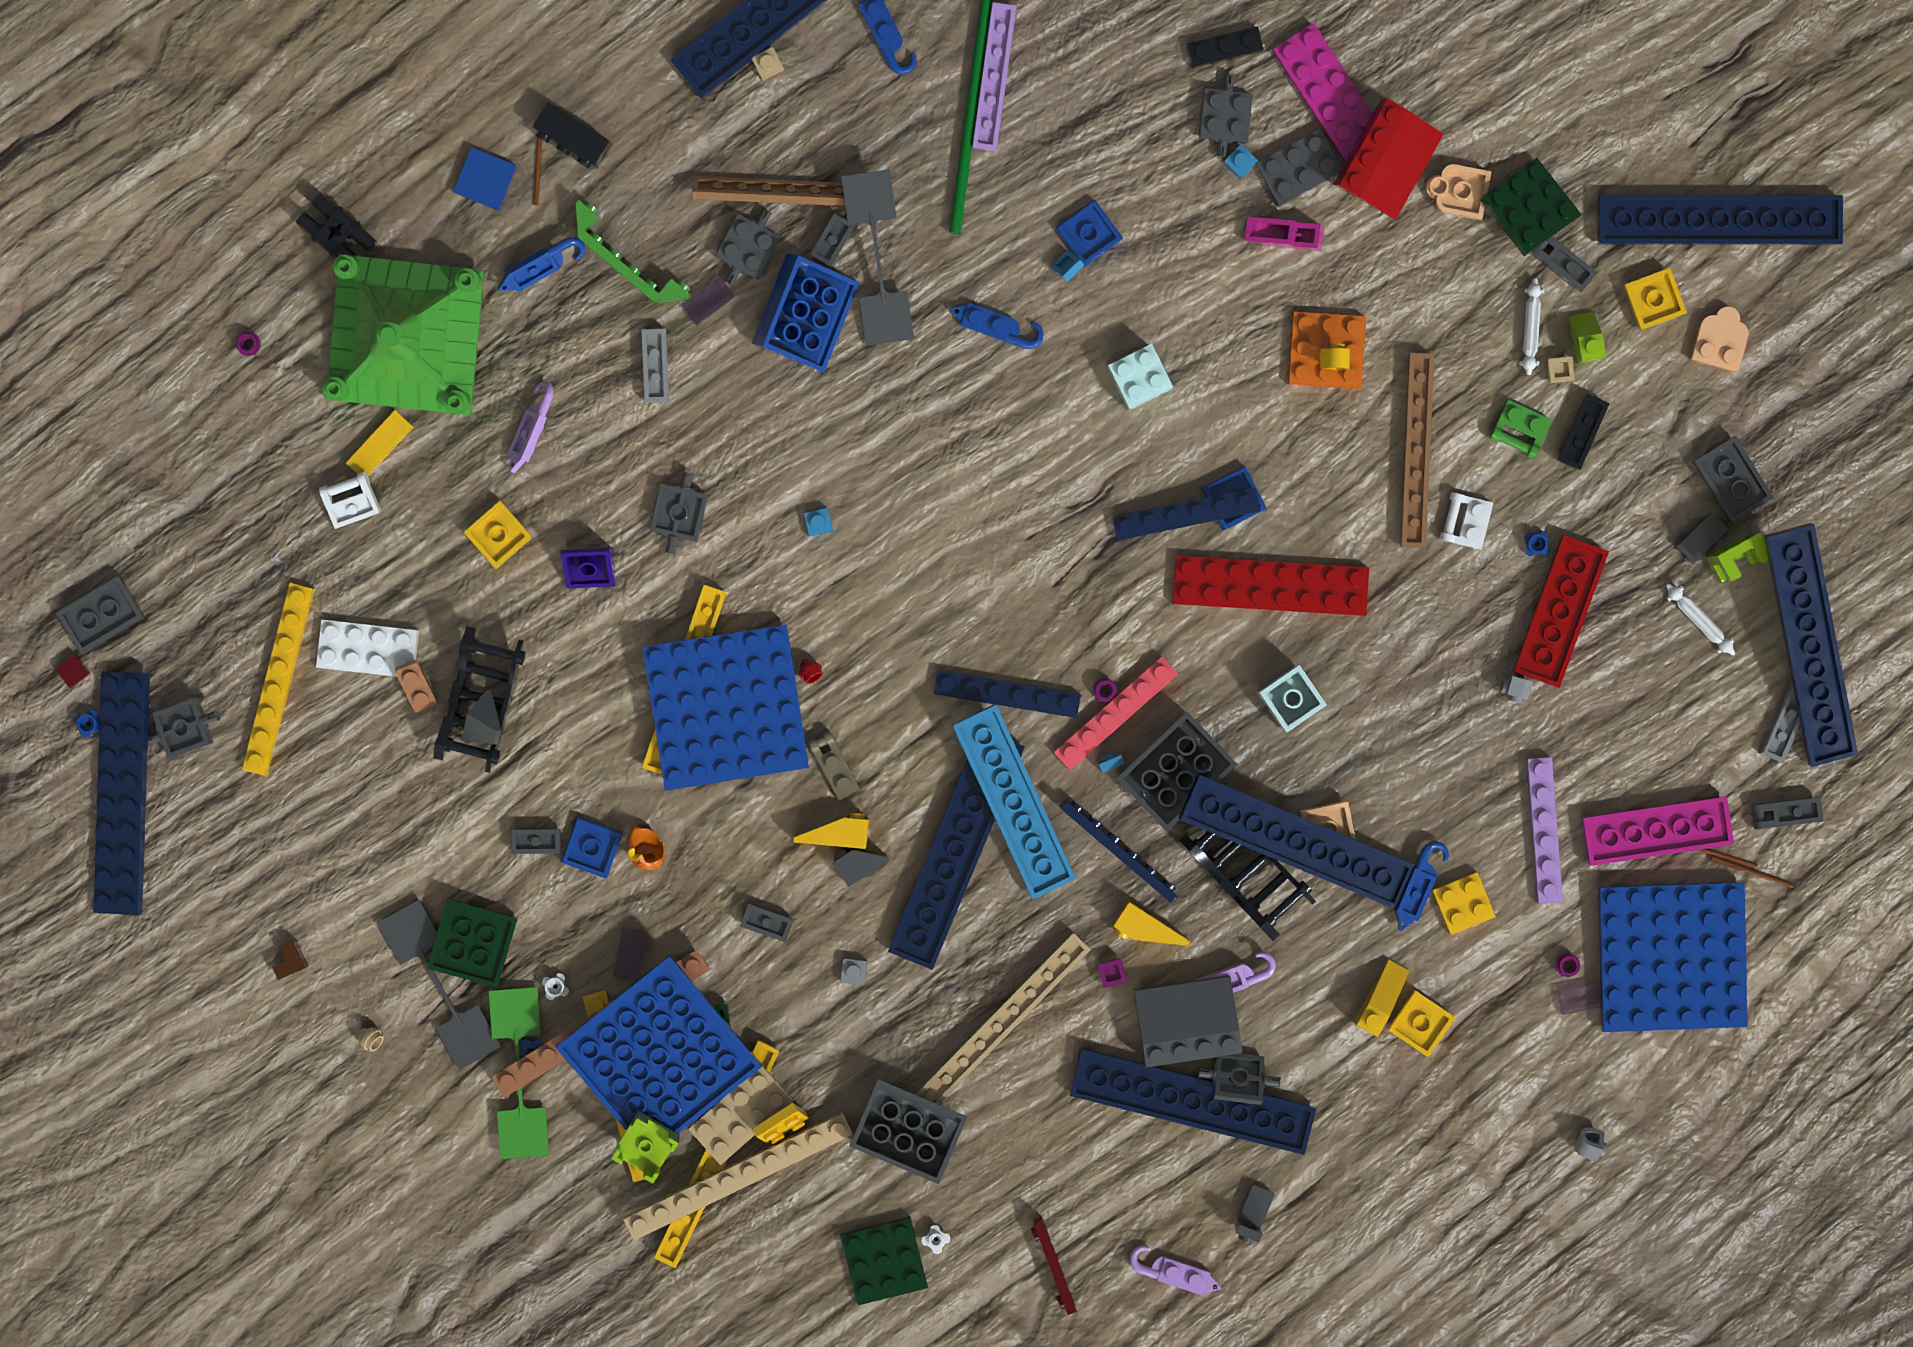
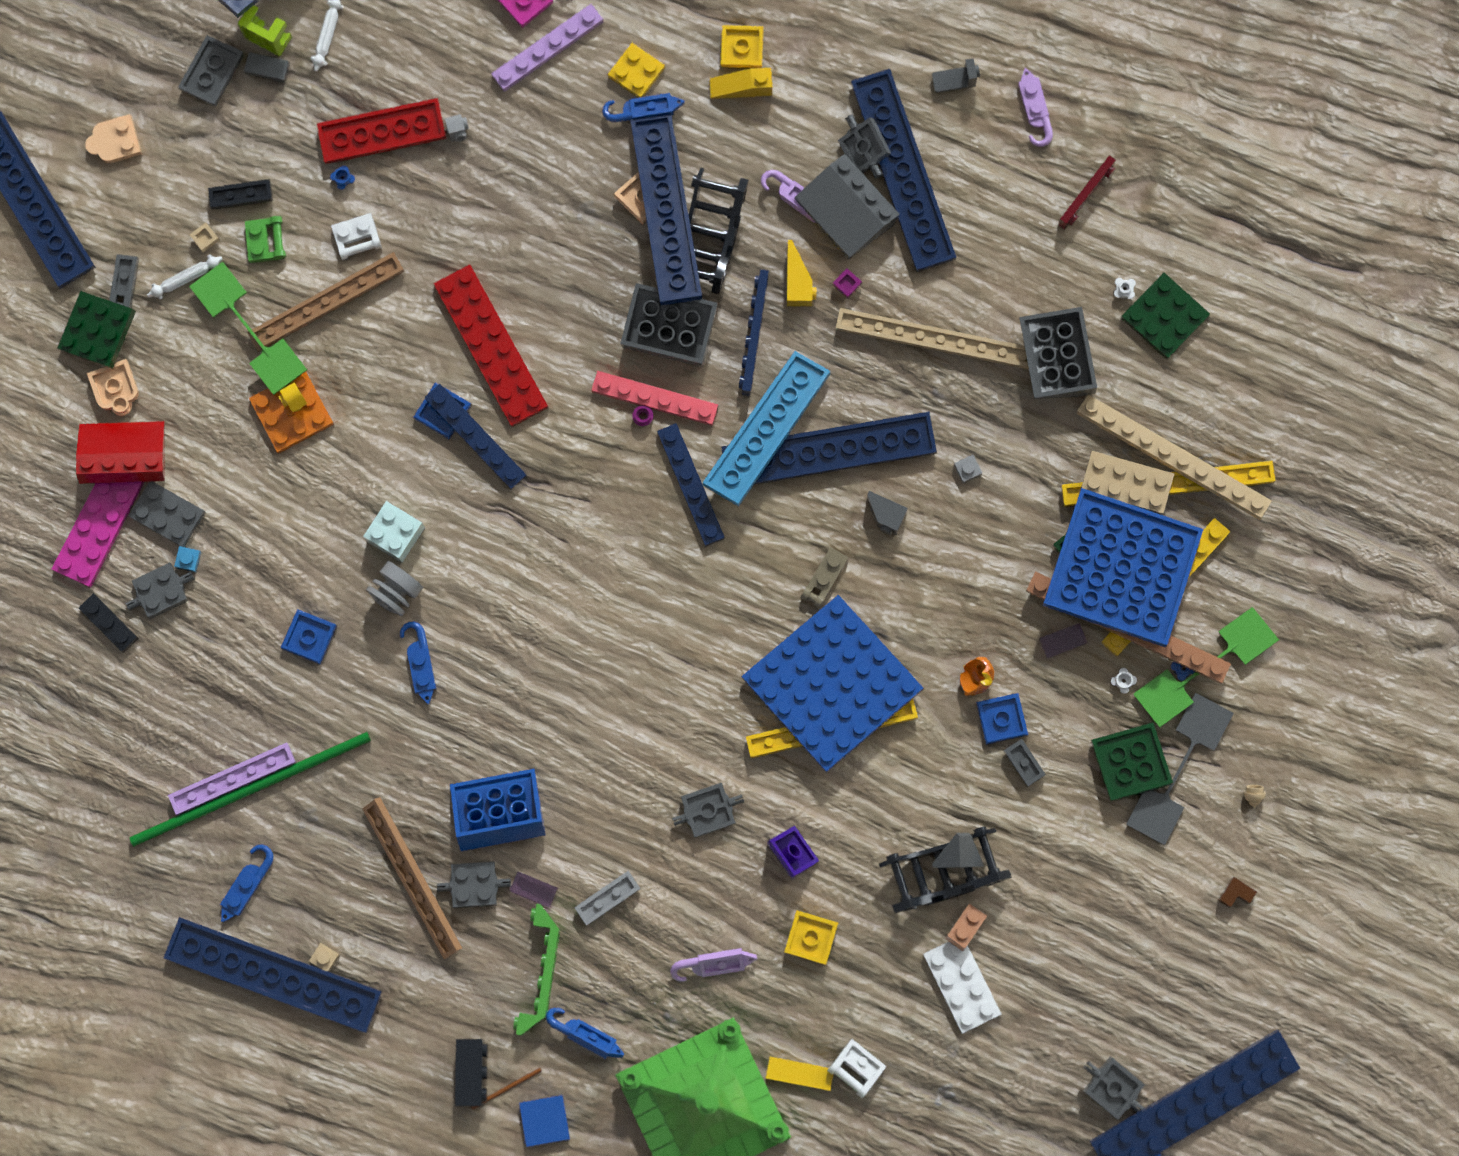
camera: 115 degrees left, 10 degrees down
(278, 679) = (1029, 1038): yellow plate -> none
(645, 1145) = (1195, 534): lime panel -> none
(767, 922) = (973, 553): dark grey plate -> none
(779, 1124) = (1122, 451): yellow plate -> none
(810, 671) = (765, 638): red plate -> none
(818, 522) = (650, 702): dark azure plate -> none
(832, 240) = (429, 823): dark grey plate -> none
(842, 832) = (871, 541): yellow slope -> none
(869, 200) = (382, 811): dark grey hinge -> none
(1067, 265) = (342, 636): dark azure plate -> none
(1080, 342) = (394, 588): none -> light grey wheel
(1110, 762) = (693, 378): dark azure plate -> none
(1285, 233) = (222, 493): dark pink slope -> none
(1291, 698) = (563, 277): light aqua brick -> none
(1381, 362) = (276, 364): none -> bright green hinge
(1587, 338) = (169, 232): lime slope -> none
(1654, 299) = (112, 203): yellow plate -> none

